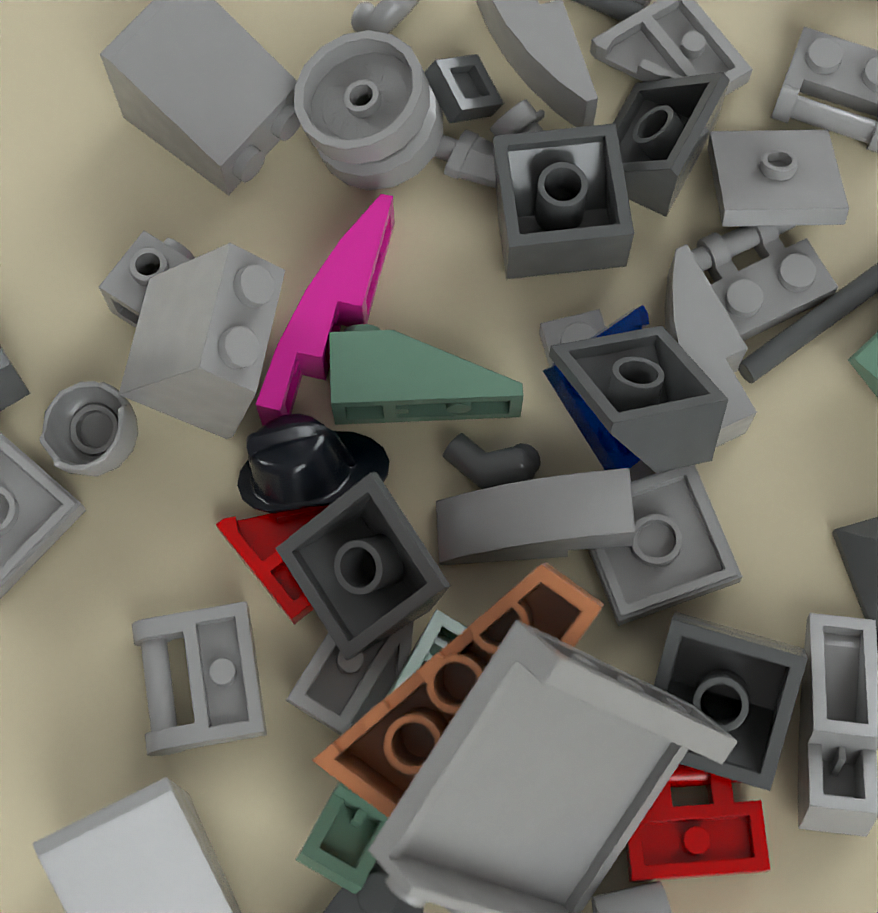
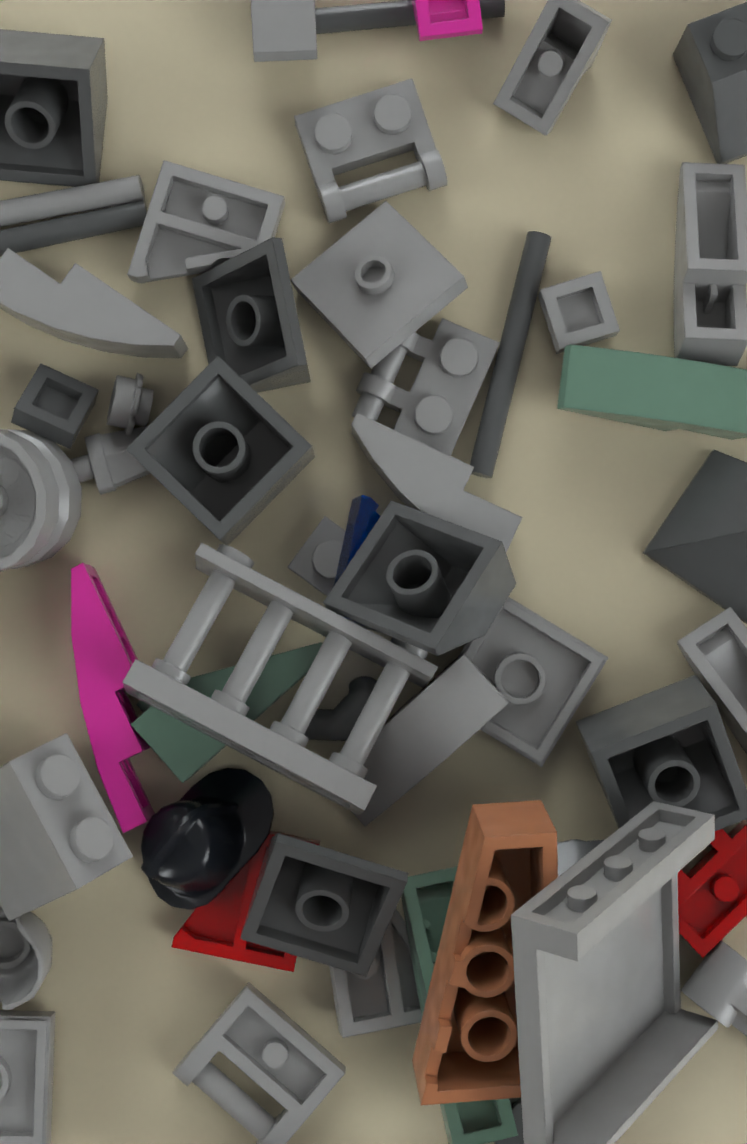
camera: 45 degrees left, 15 degrees up
(432, 425) = (225, 712): none -> light grey fence

